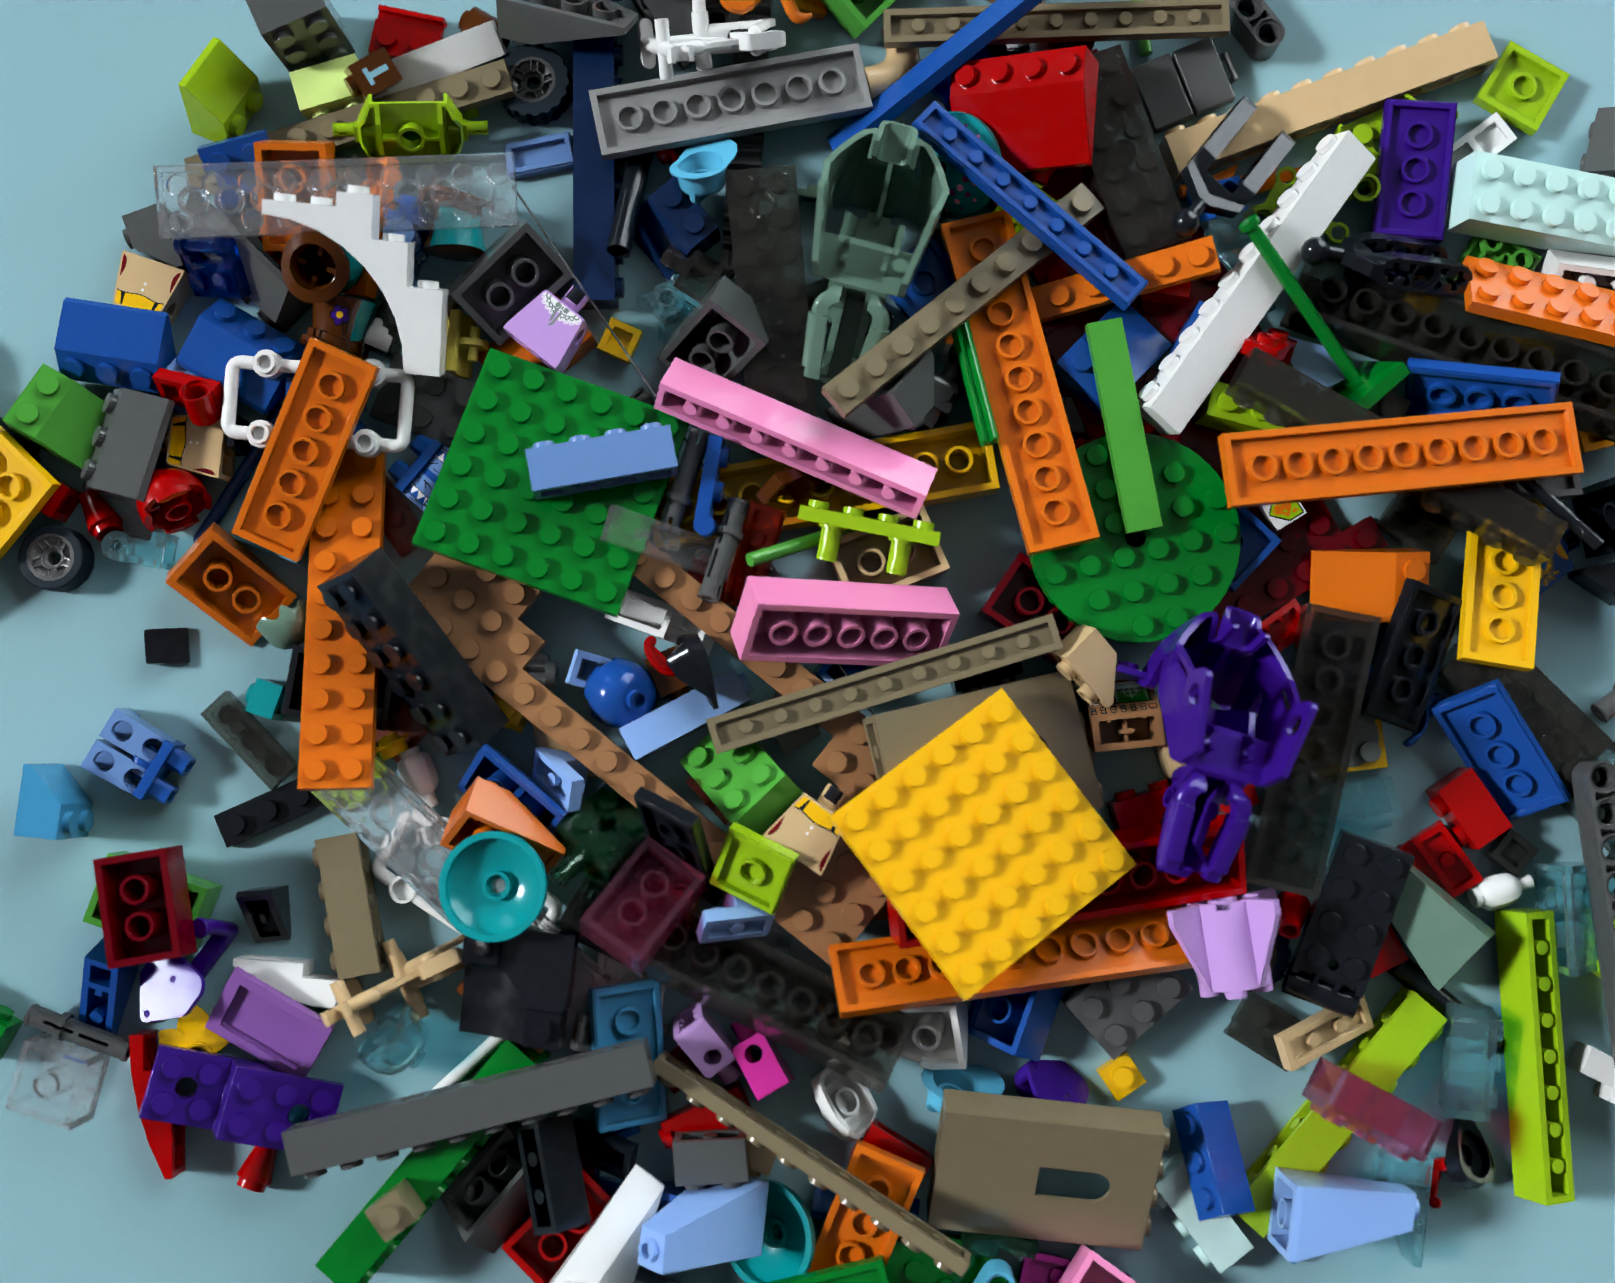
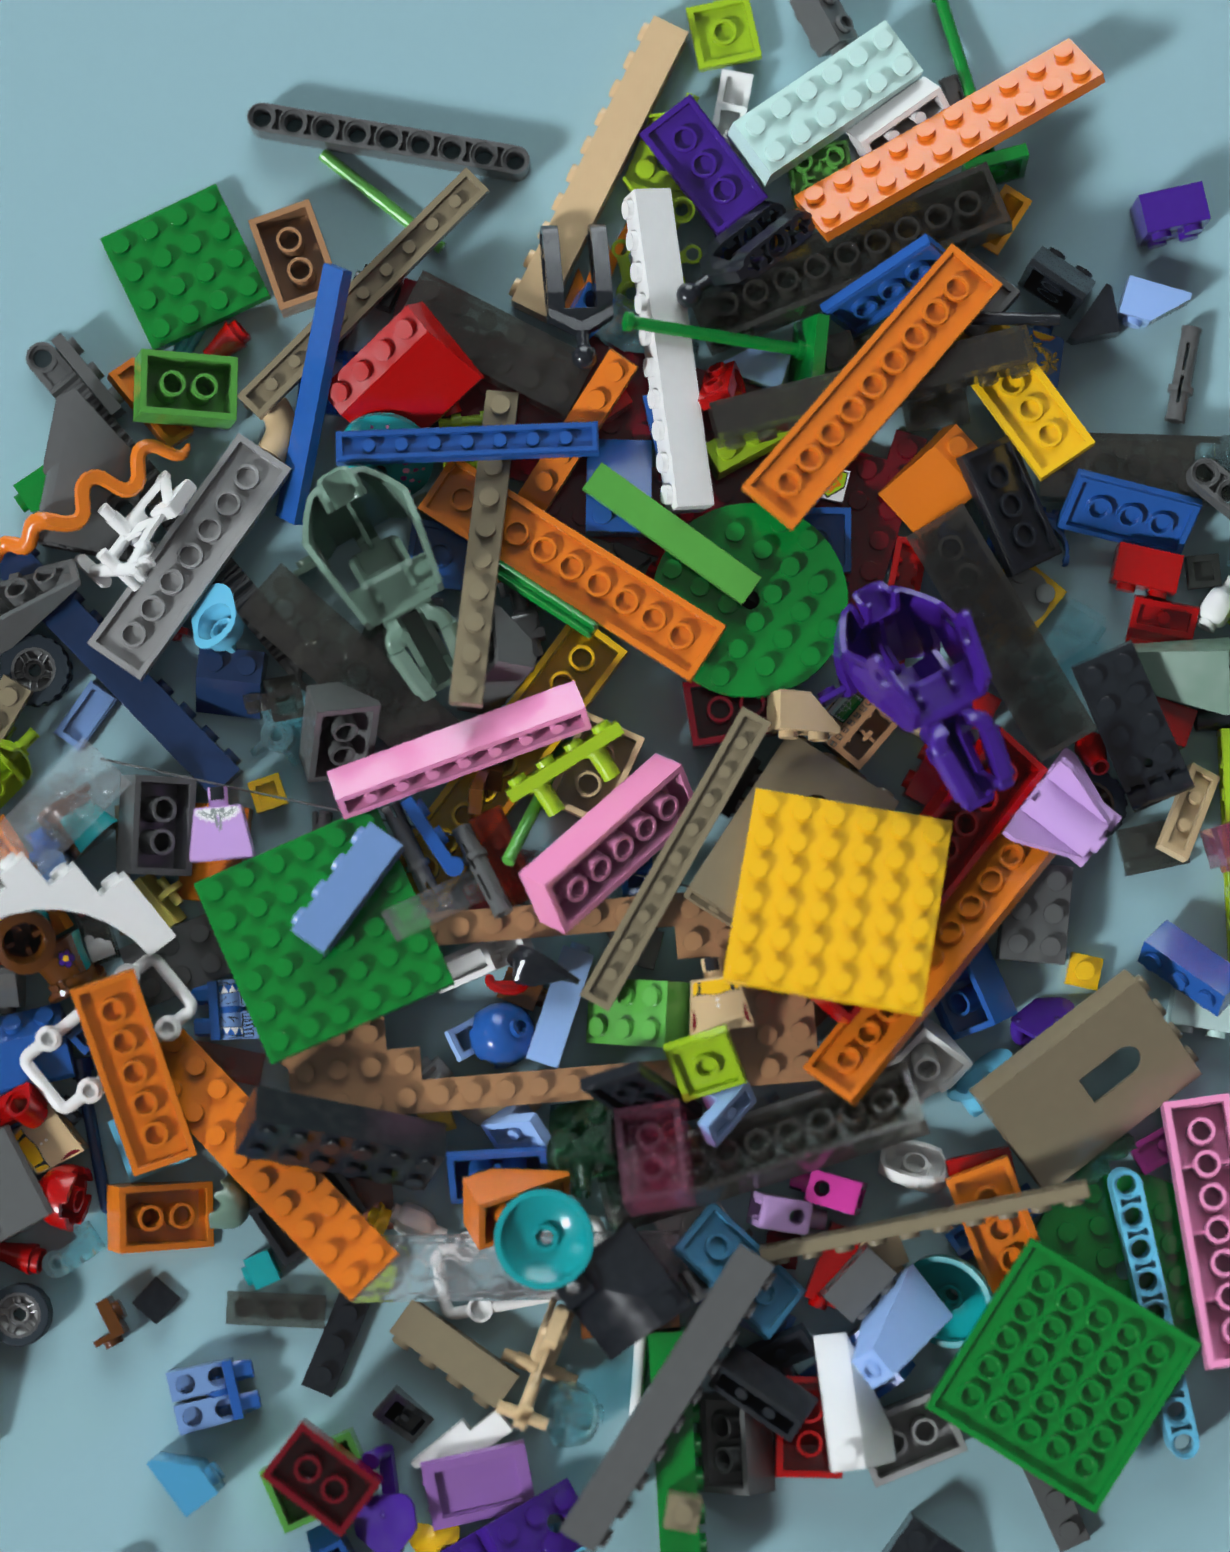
camera: 45 degrees left, 0 degrees up
(121, 628) = (113, 1316): none -> reddish brown bracket
(629, 205) = (188, 696): black piece -> none
(698, 790) = (634, 1049): clear red piece -> none
(1196, 84) = (495, 235): dark grey piece -> none

